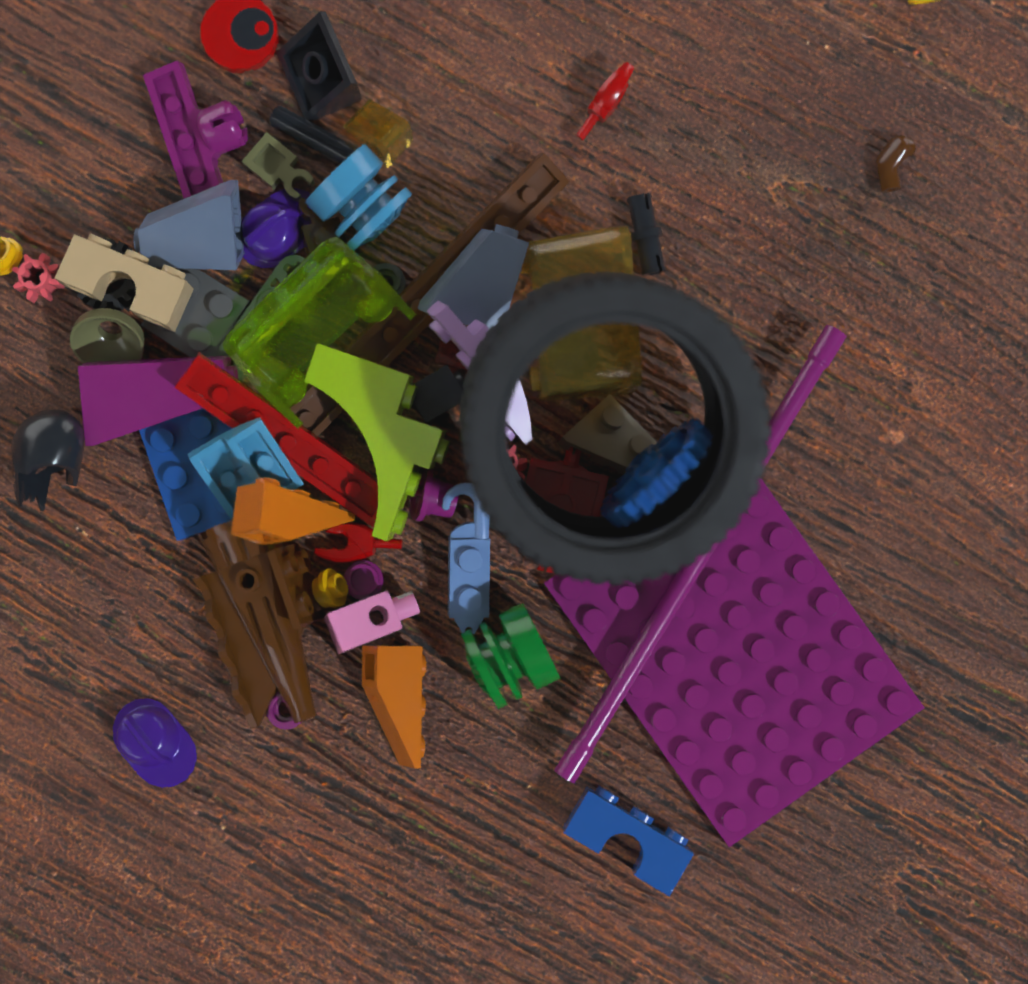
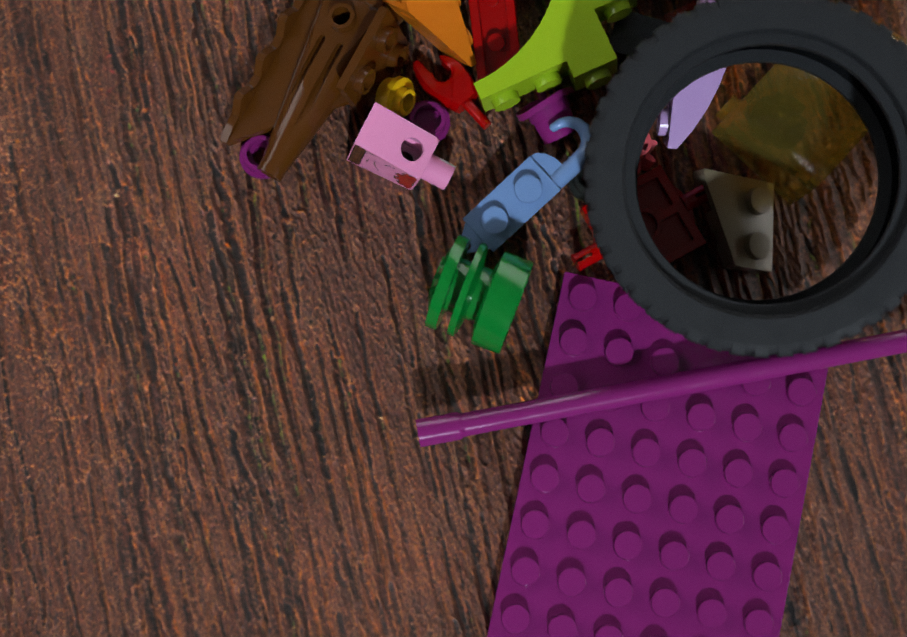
camera: 45 degrees right, 5 degrees down
(154, 743) = (136, 77): dark purple piece -> none
(394, 690) = (359, 226): orange slope -> none
(656, 473) = (755, 263): blue gear -> none
(661, 854) = (427, 582): blue arch -> none

